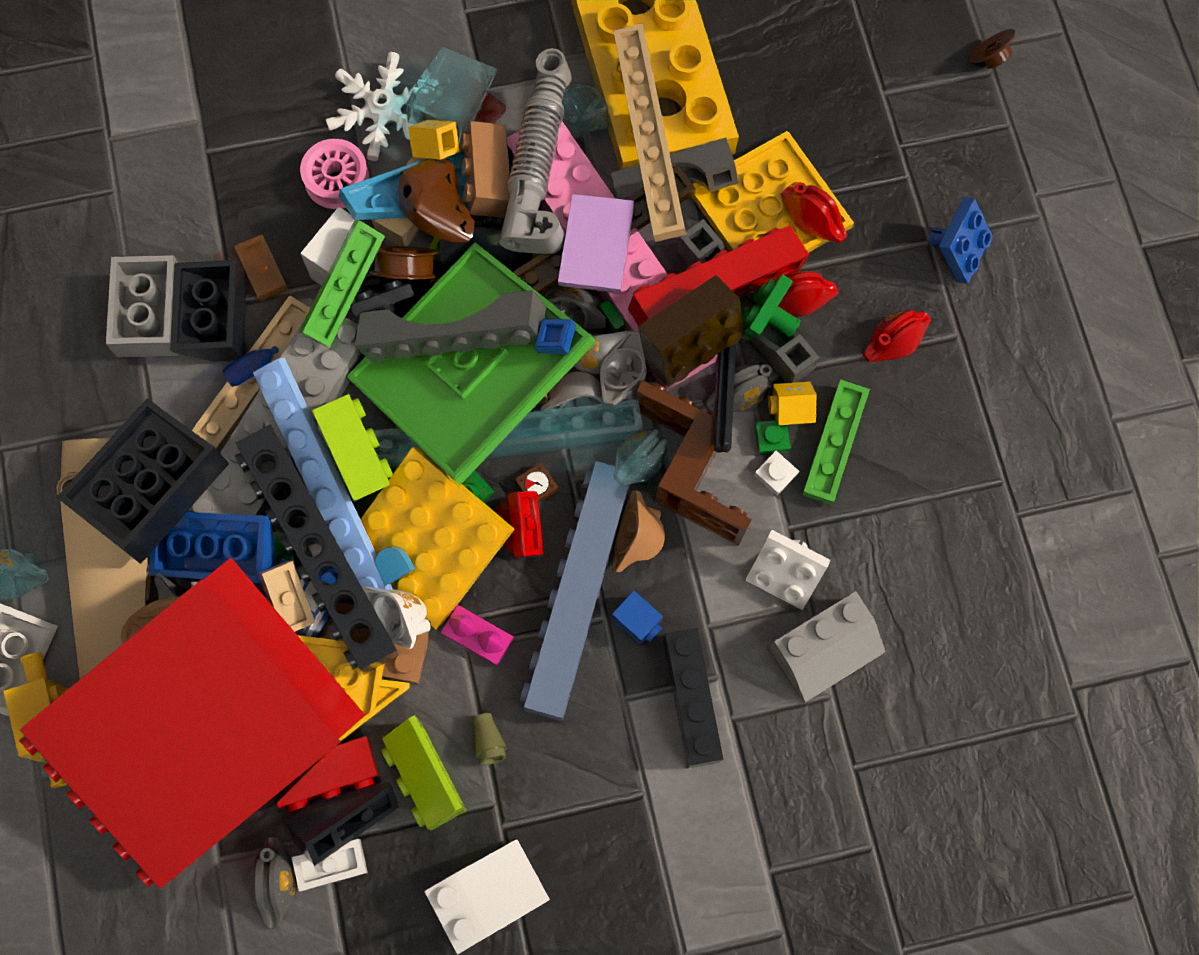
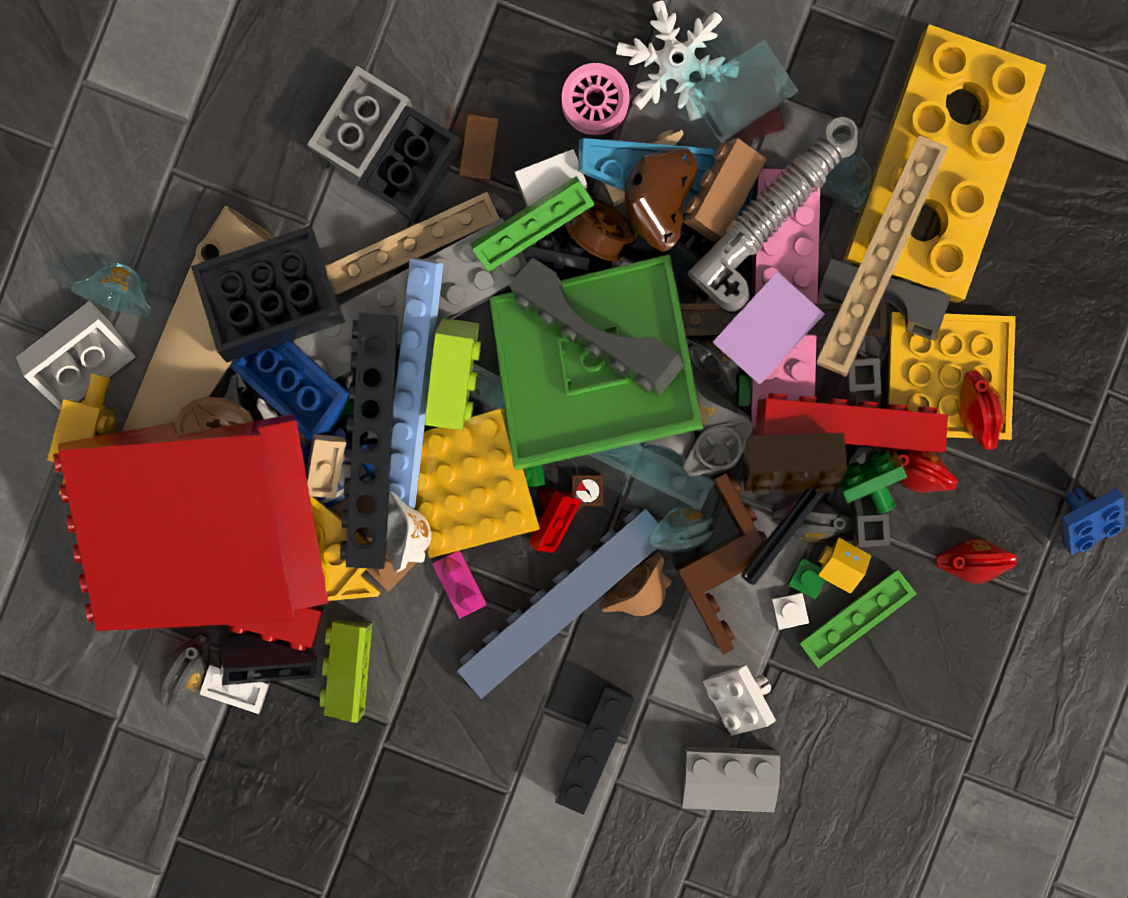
camera: 35 degrees right, 15 degrees up
(243, 368) = (414, 236): clear blue piece -> none
(393, 564) = (427, 488): dark azure tile -> none
(434, 139) = (695, 134): yellow brick -> none
(486, 896) = (337, 791): white slope -> none
(488, 741) = (414, 674): olive cone -> none
(555, 336) = (671, 402): blue tile -> none
(638, 619) = (594, 658): blue brick -> none

